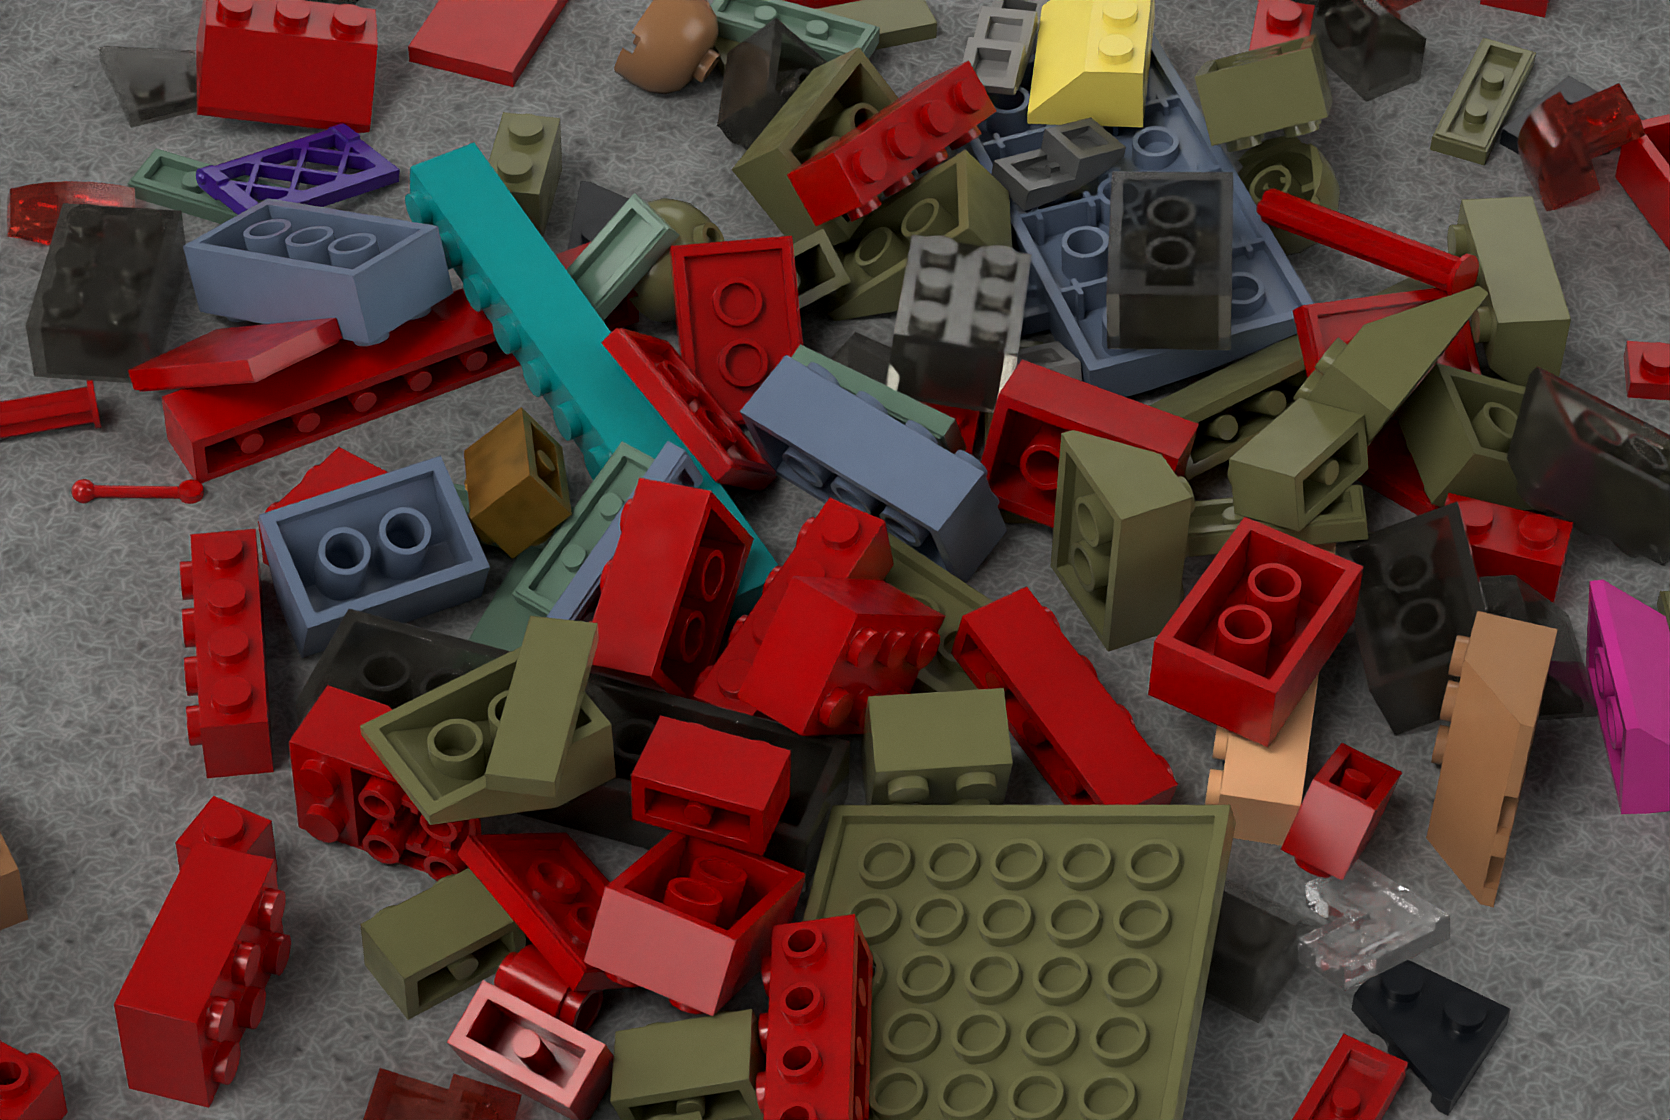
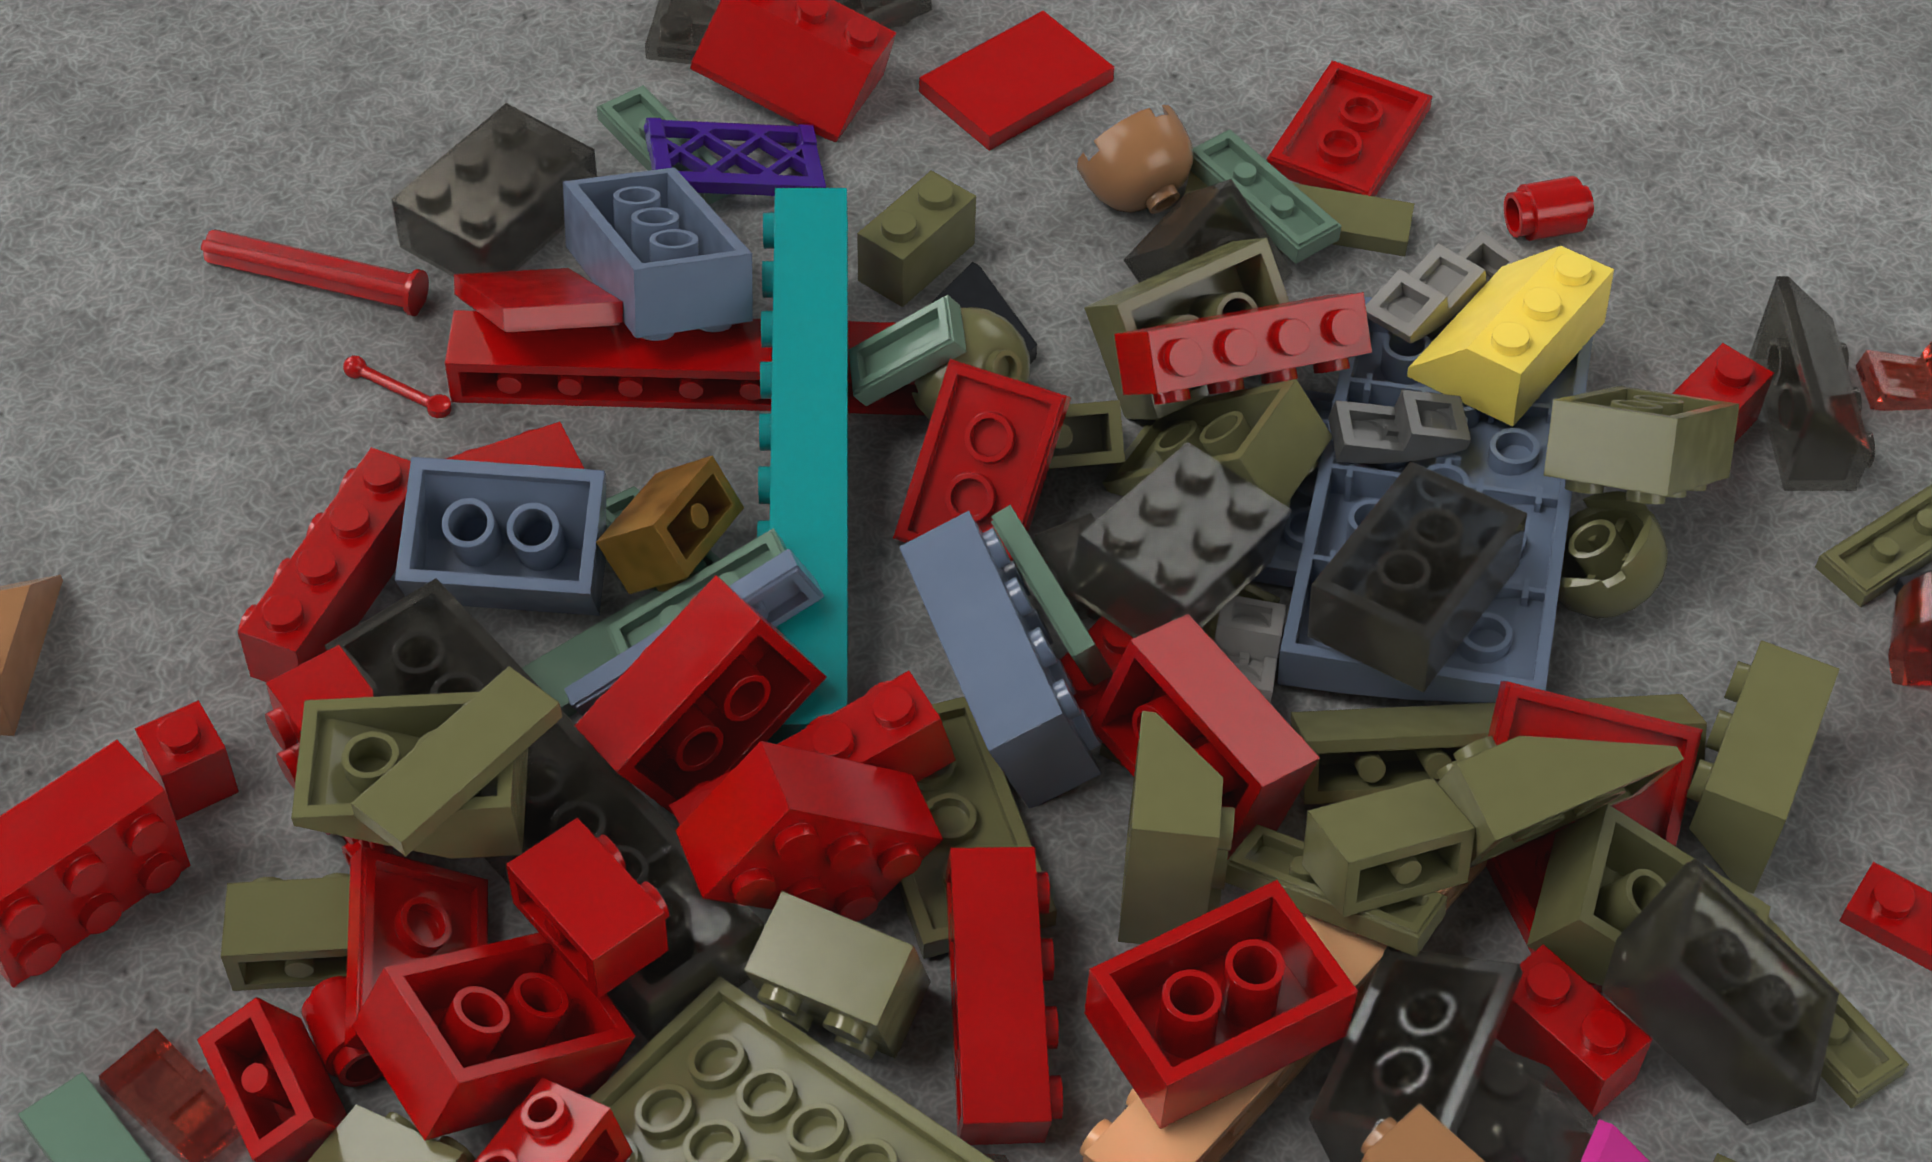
camera: 30 degrees right, 5 degrees up
(36, 207) = (535, 100): clear red slope -> none
(690, 409) = (868, 515): red tile -> none
(1368, 242) = (1691, 716): red axle -> none

